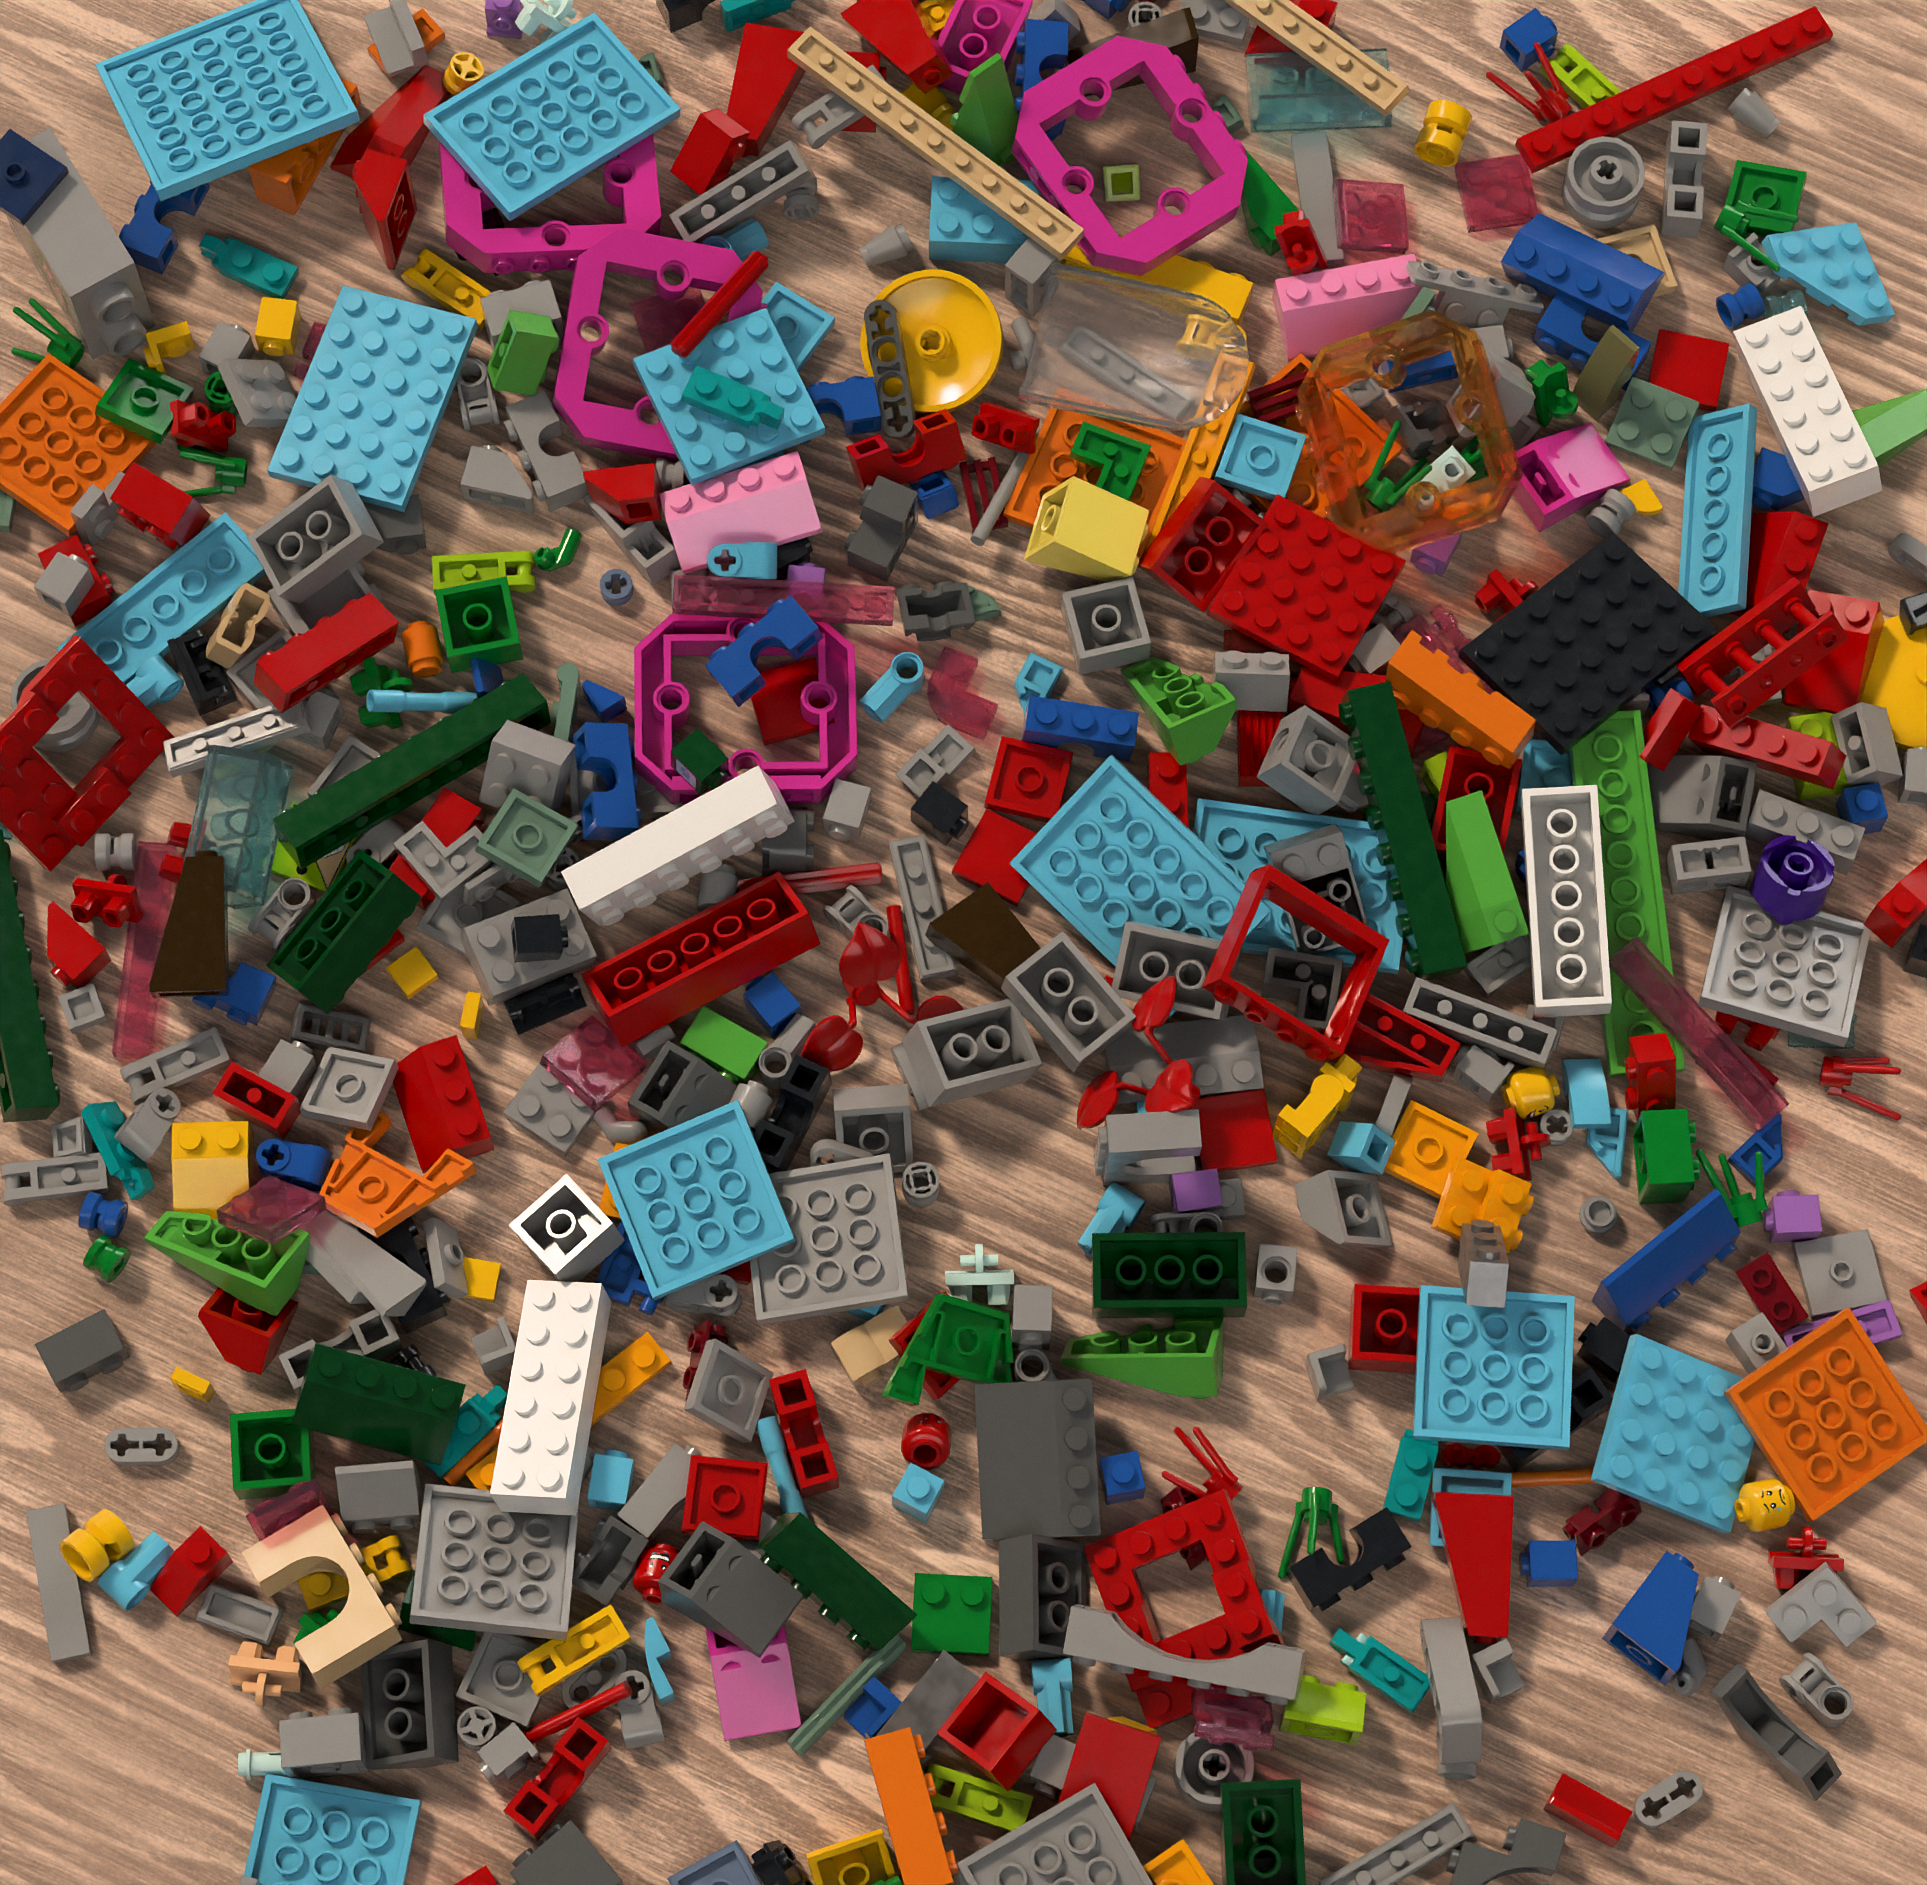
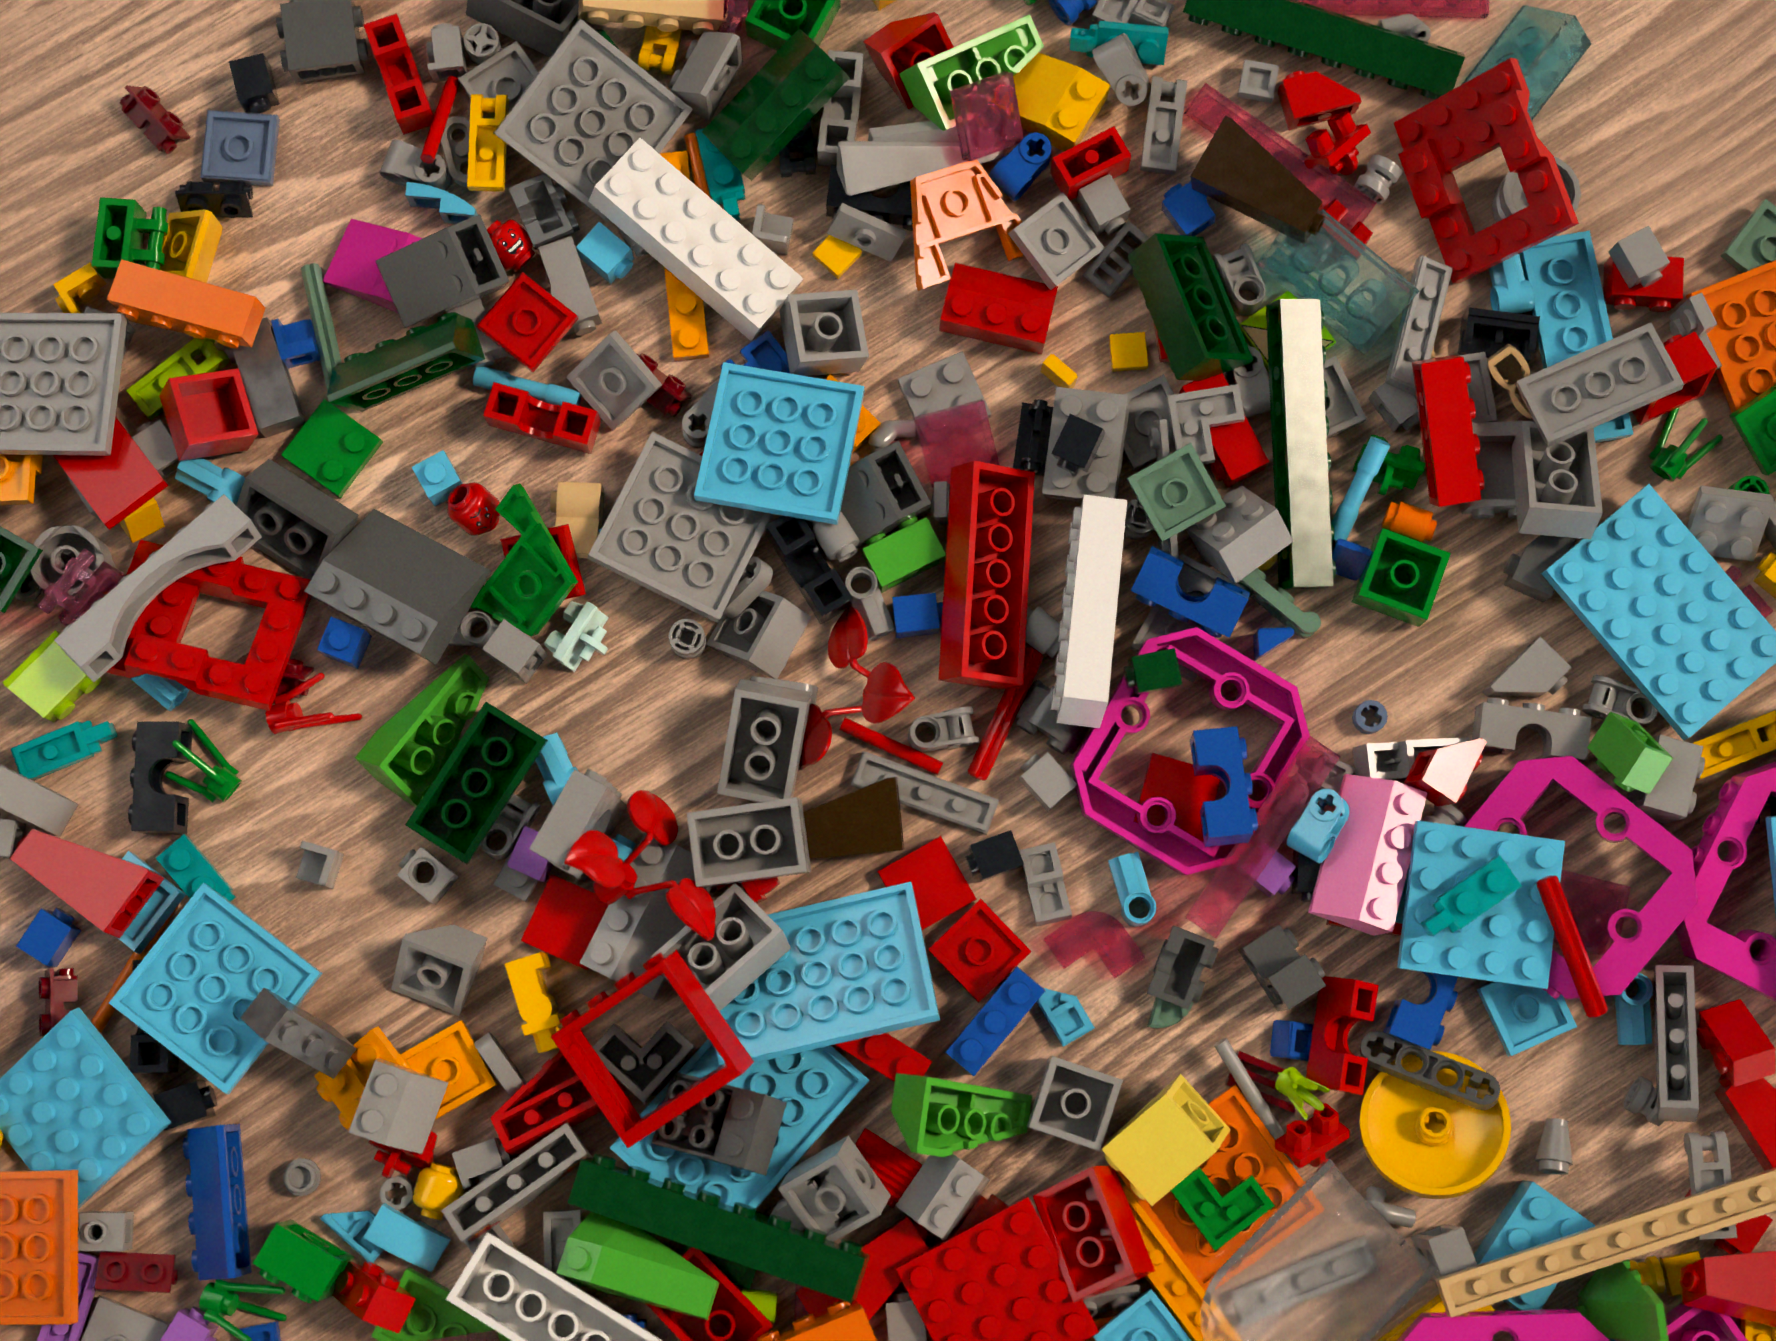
camera: 120 degrees right, 10 degrees up
(200, 426) = (1726, 456): red hips -> none
(210, 544) = (1599, 384): none -> light grey plate
(477, 567) = (1450, 612): lime plate -> none
(561, 556) = (1427, 687): green arm -> none
(973, 458) = (1296, 1087): none -> lime piece
(1361, 1147) = (480, 1013): medium azure brick -> none
(1383, 1328) = (320, 930): red brick -> none
(1486, 1157) = (398, 1106): none -> light grey slope

